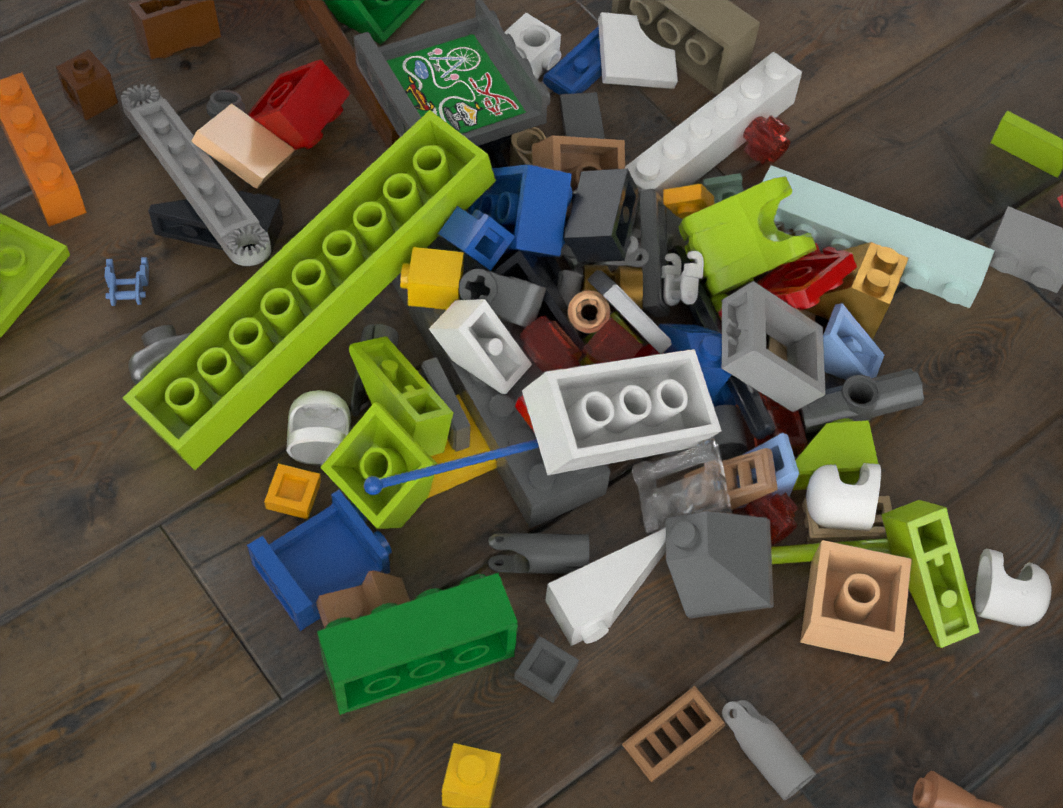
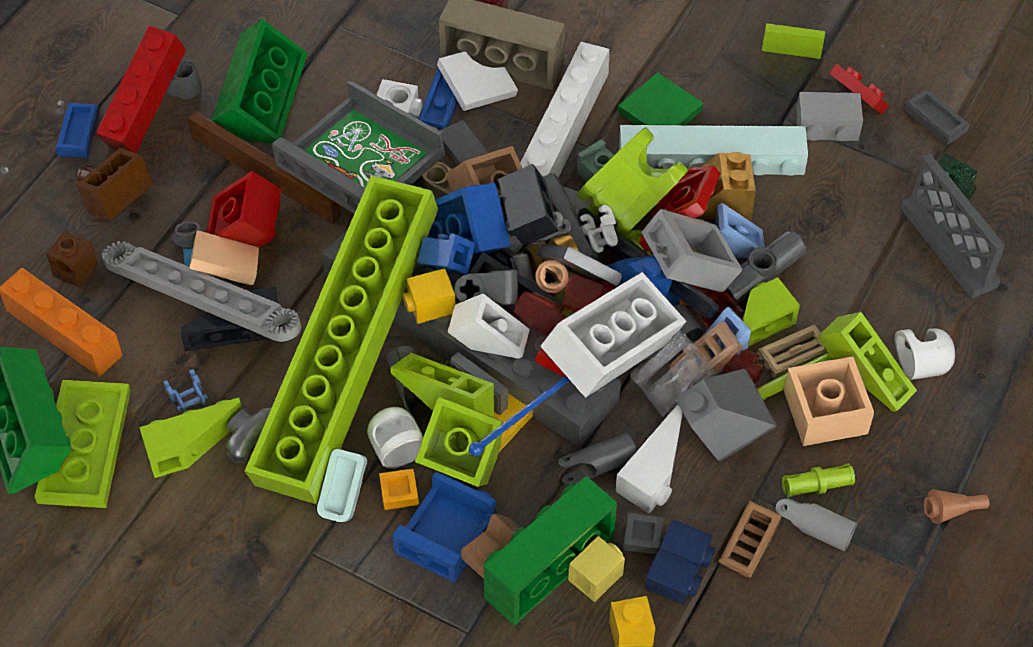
camera: 20 degrees left, 5 degrees down
(90, 333) = (183, 439): none -> lime slope
(228, 460) = (341, 485): none -> light aqua piece
(468, 688) = (596, 568): none -> light yellow brick
(571, 725) = (679, 562): none -> dark blue brick
(687, 199) = (576, 173): light orange plate -> none
(766, 139) = (605, 107): clear red gear -> none
(796, 695) = (818, 480): none -> lime pin
(836, 160) = (660, 104): none -> green tile
(844, 505) = (788, 340): white helmet -> none

